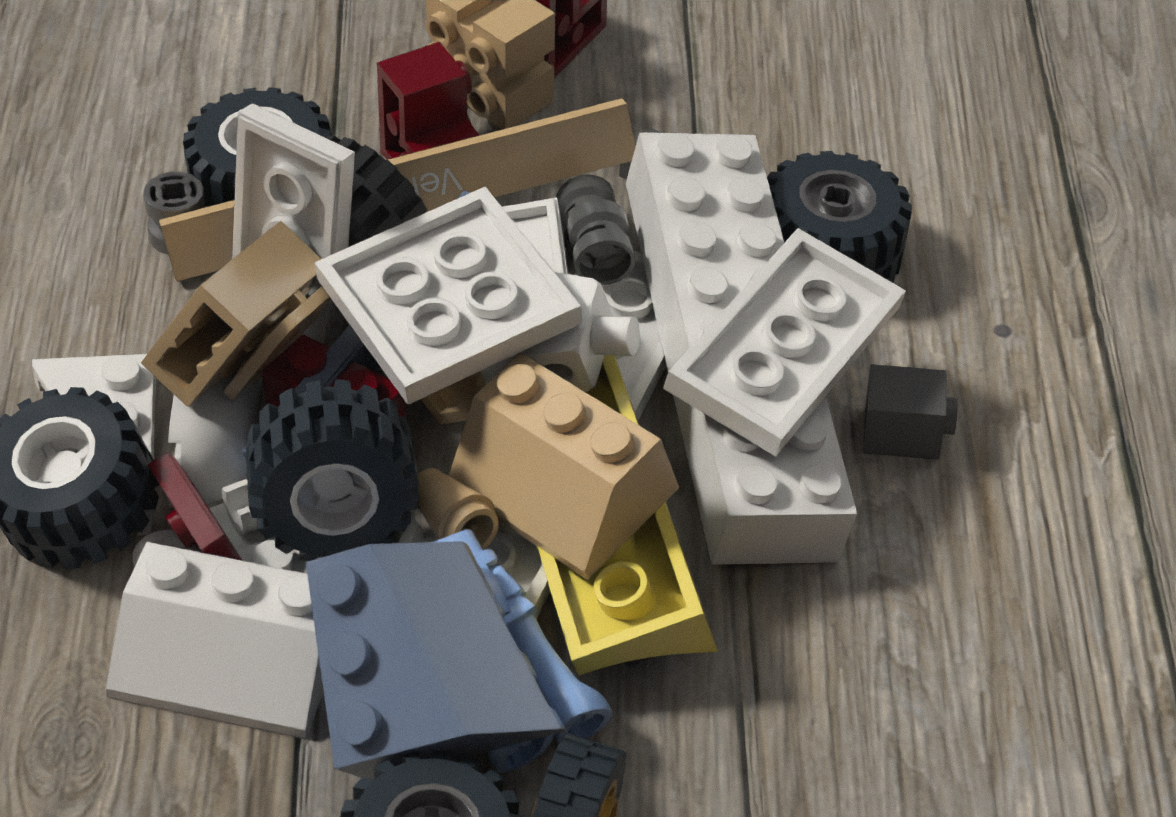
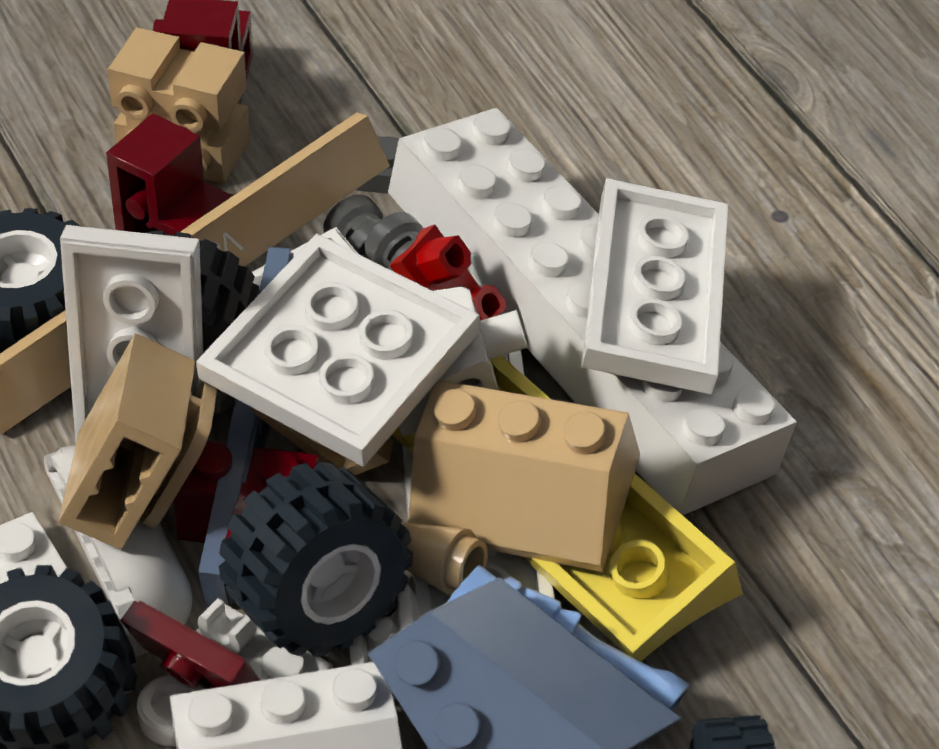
camera: 25 degrees left, 0 degrees up
(608, 258) = (443, 264): none -> red hips
(845, 206) = (599, 142): black wheel -> none
(907, 412) = (763, 316): dark grey brick -> none

